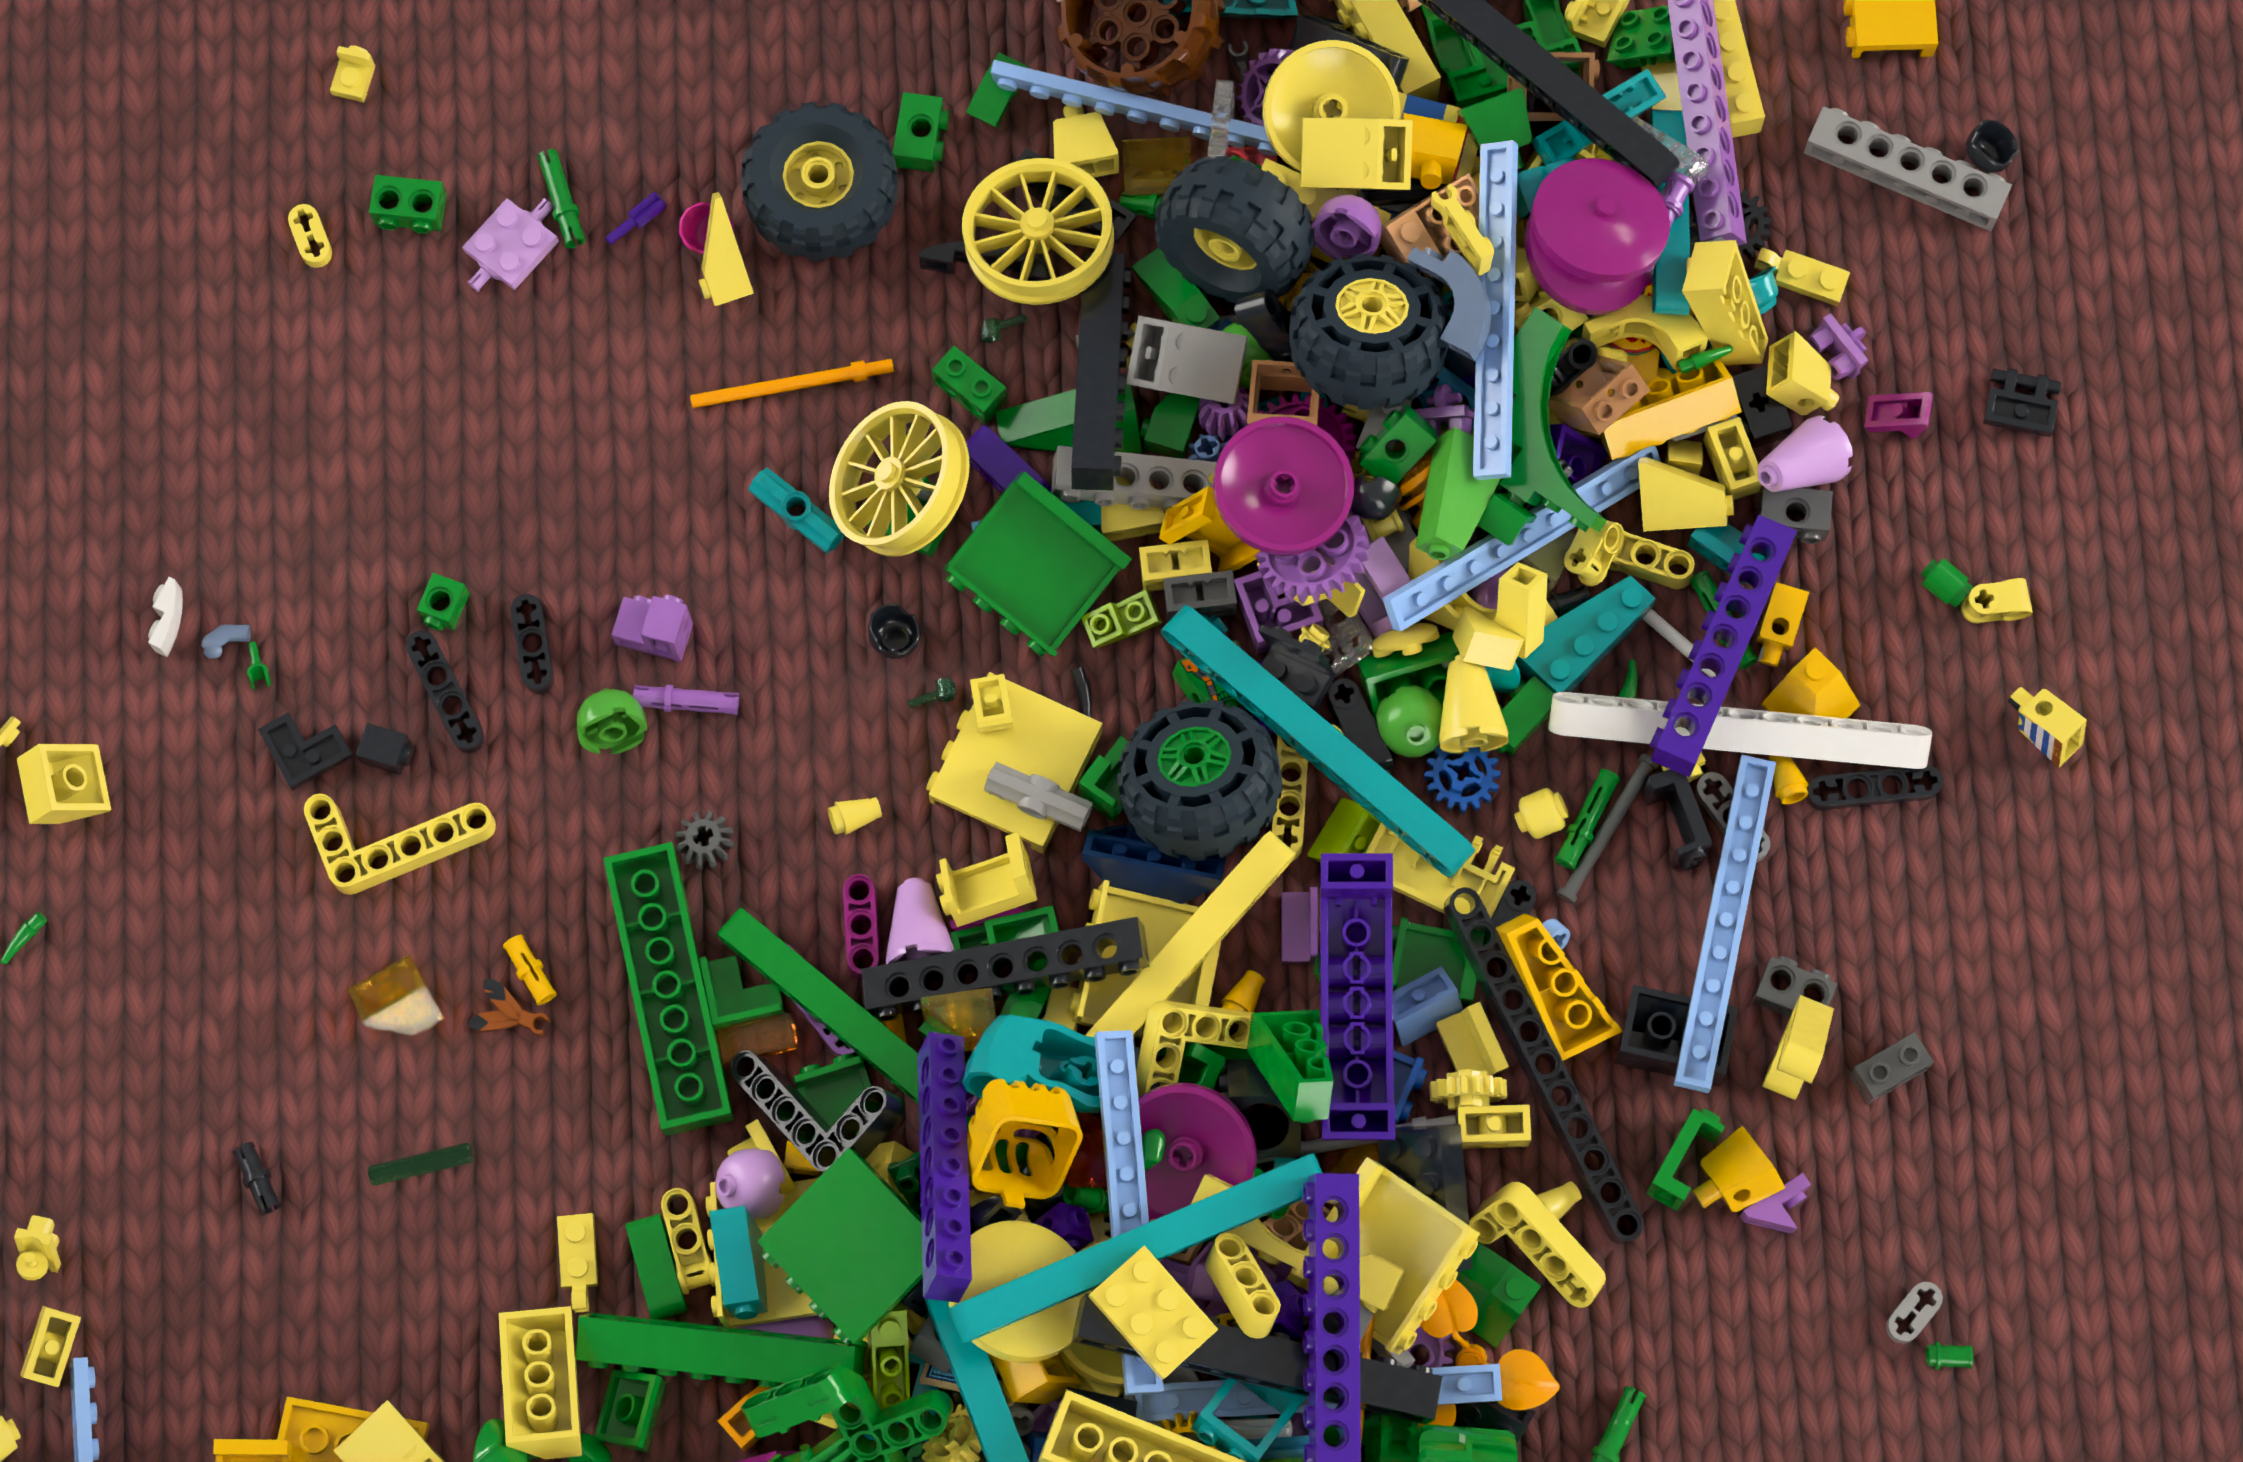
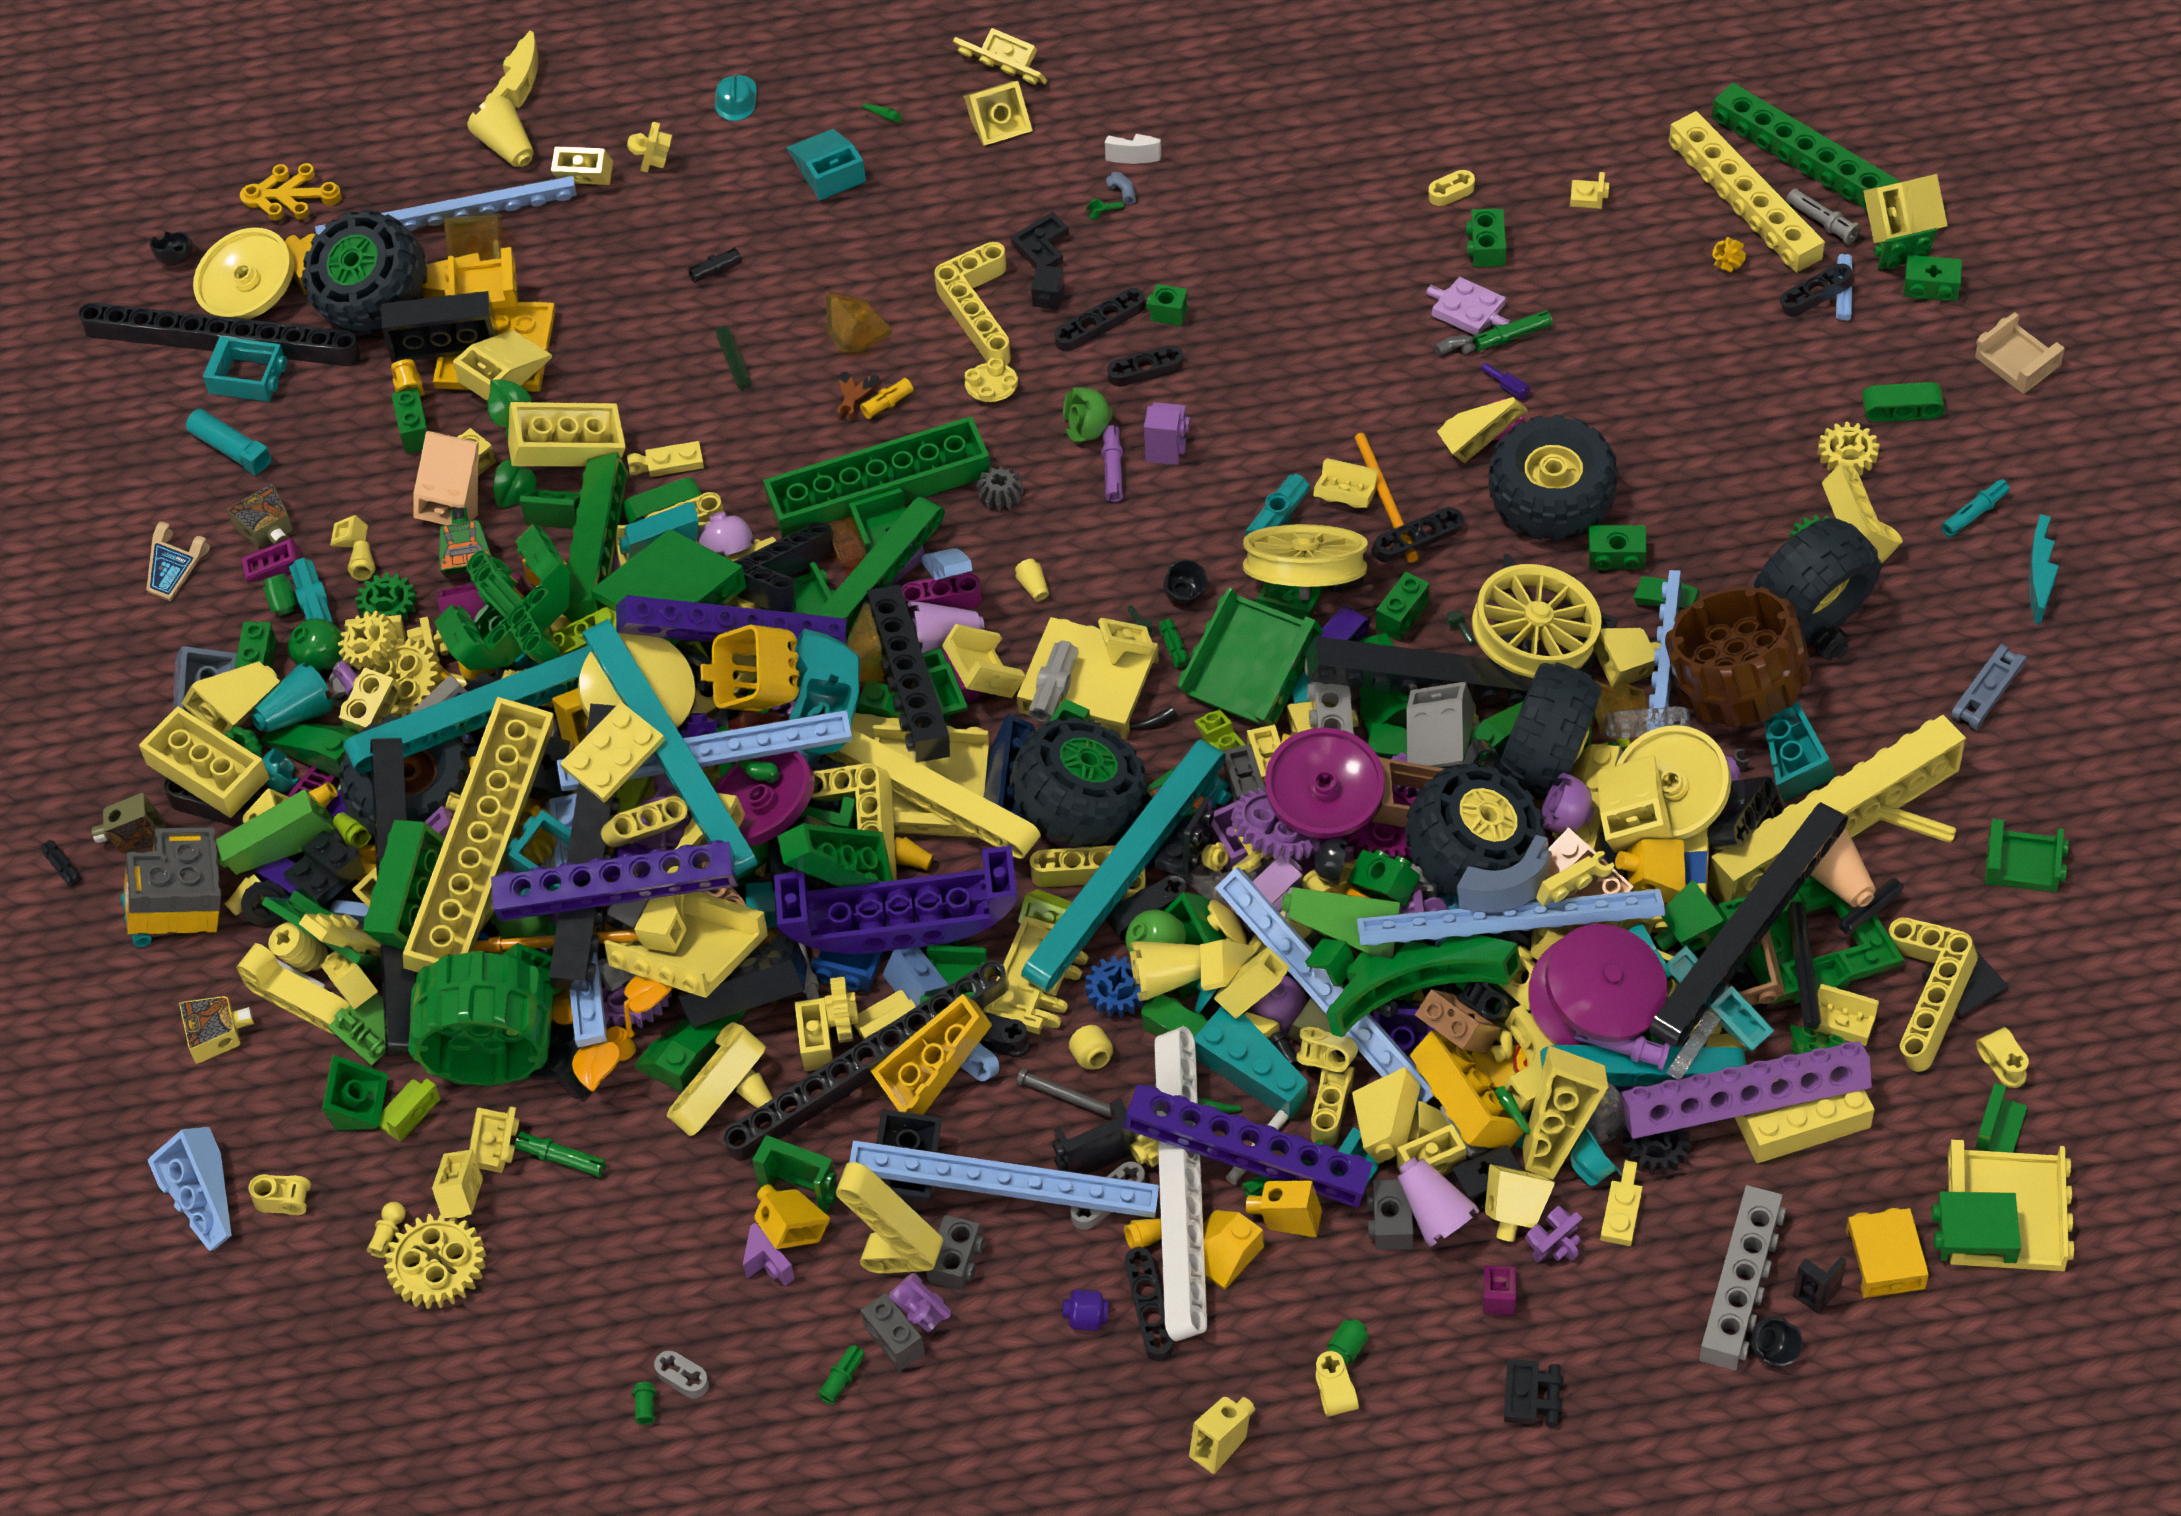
camera: 85 degrees right, 20 degrees down
(103, 1015) = (828, 163): none -> teal slope
(524, 836) = (991, 381): none -> light yellow dish
(565, 266) = (1454, 342): none -> dark grey arm
(772, 425) = (1346, 483): none -> light yellow bracket
(838, 907) = (946, 563): none -> light blue slope
(871, 350) = (1419, 537): none -> black beam
(974, 658) = (1174, 643): none -> green axle
(1573, 28) = (1804, 965): none -> black axle
(1581, 831) = (1078, 1079): green pin -> none
(1864, 1032) = (919, 1303): none -> medium lavender hips
(1882, 854) = (1085, 1310): none -> dark purple head
(1932, 1131) = (841, 1375): none -> green axle
(1938, 85) = (1815, 1286): none -> black panel

